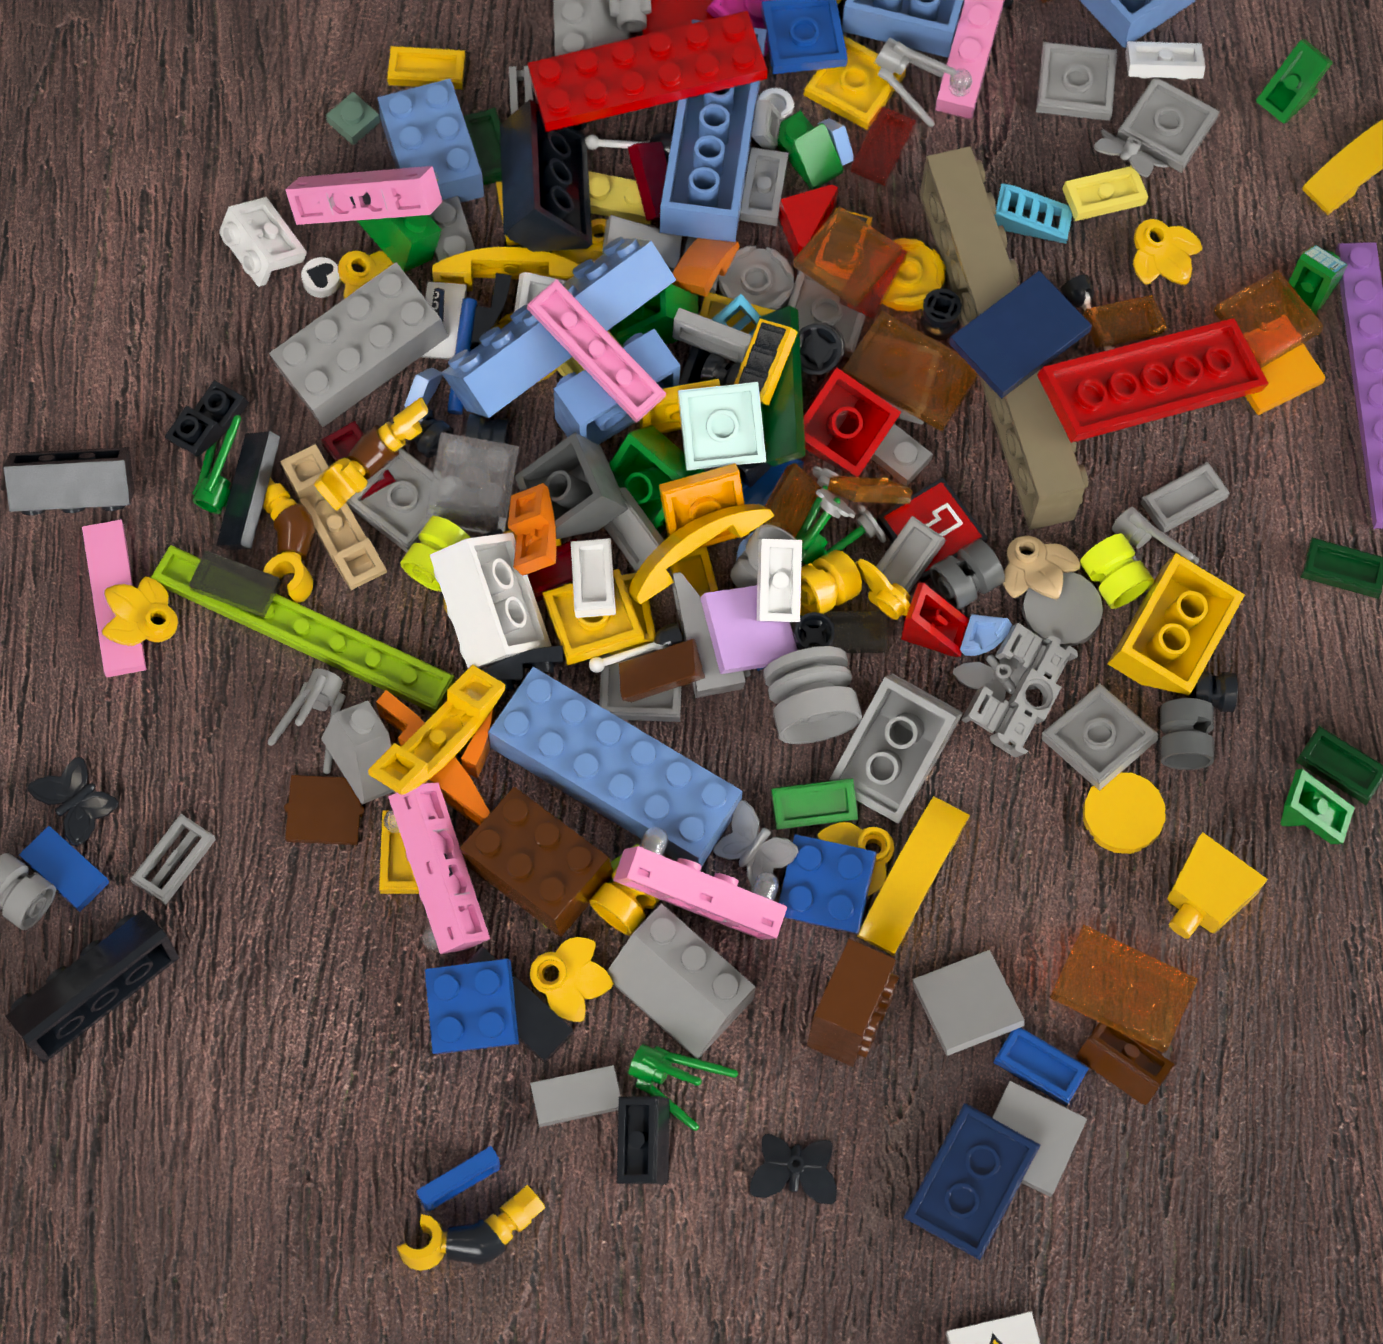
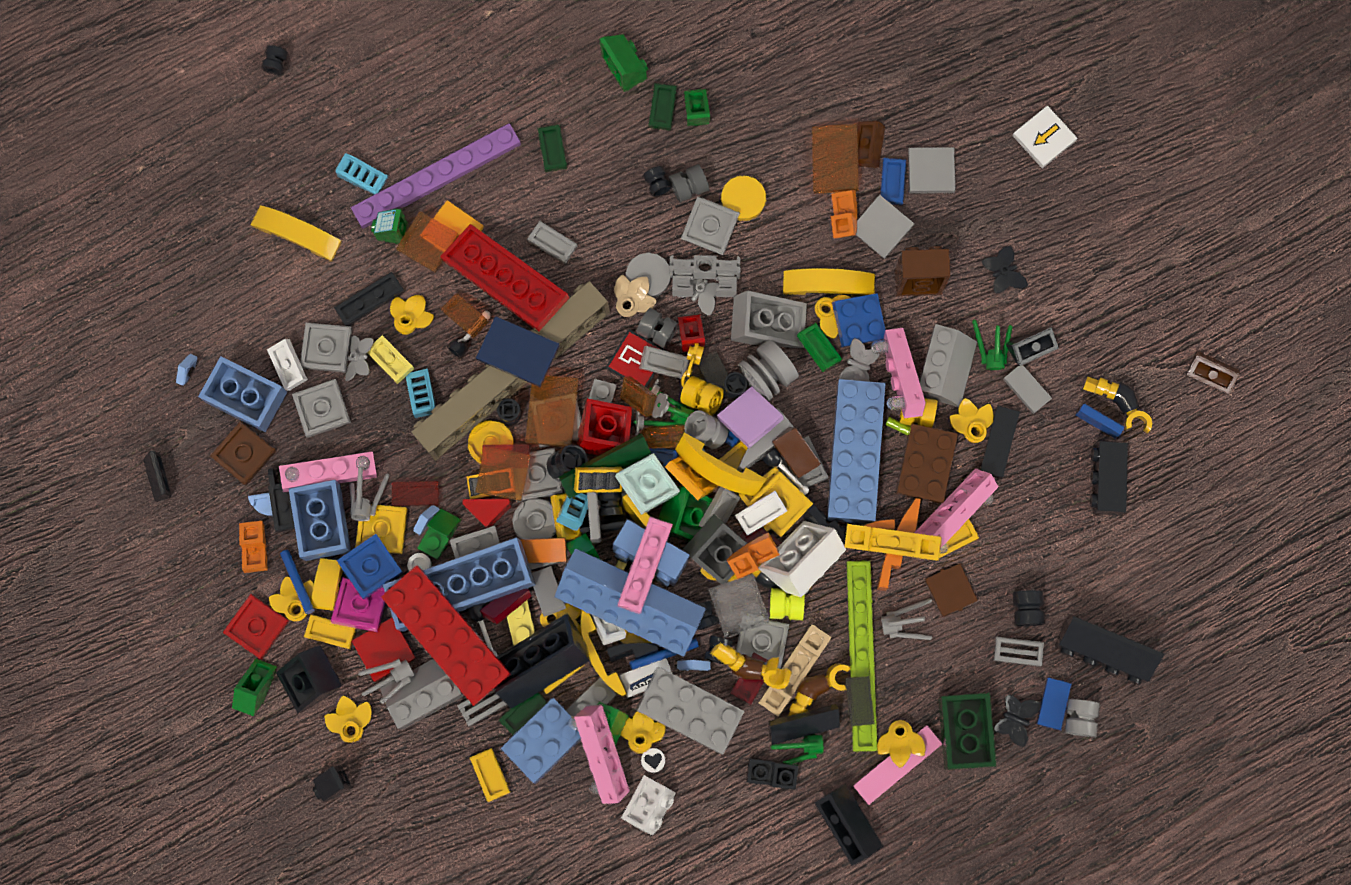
camera: 110 degrees left, 10 degrees up
(98, 708) = (967, 731): none -> dark green brick
(229, 902) = (1028, 607): none -> black wheel
(353, 118) = (544, 799): sand green plate -> none
(356, 742) = (915, 583): light grey slope -> none
(357, 1142) = (1109, 478): none -> black brick
(471, 1006) = (1014, 459): blue plate -> none
(766, 124) = (439, 558): light grey tile -> none
(779, 580) = (722, 409): white plate -> none
(972, 1181) = (968, 185): dark blue tile -> none
(984, 634) = (683, 307): light blue tile -> none
(1008, 949) = (845, 214): none -> orange slope
(1119, 574) = (616, 255): neon yellow wheel -> none
(1140, 530) = (585, 256): light grey plant -> none
(1176, 627) = (635, 211): yellow slope -> none
(1211, 888) = (763, 139): yellow torso -> none
(1215, 210) = (369, 299): none -> black tile
(1294, 81) = (270, 288): green slope -> none

